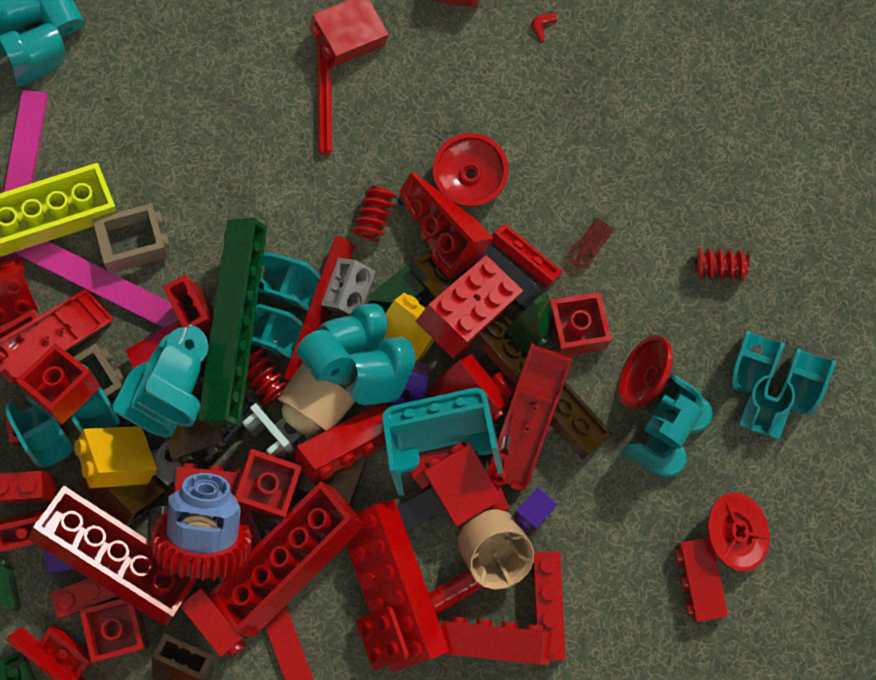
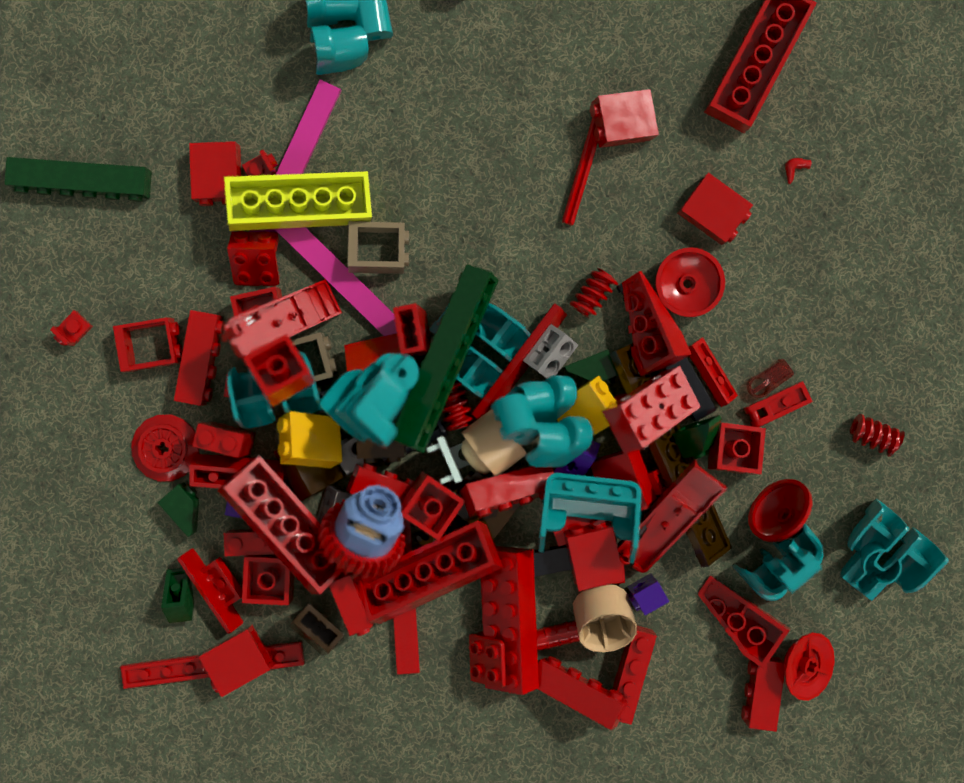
camera: 15 degrees right, 10 degrees up
(473, 90) = (716, 209): none -> red brick
(609, 265) = (779, 404): none -> red plate
(660, 511) = (748, 625): none -> red wedge

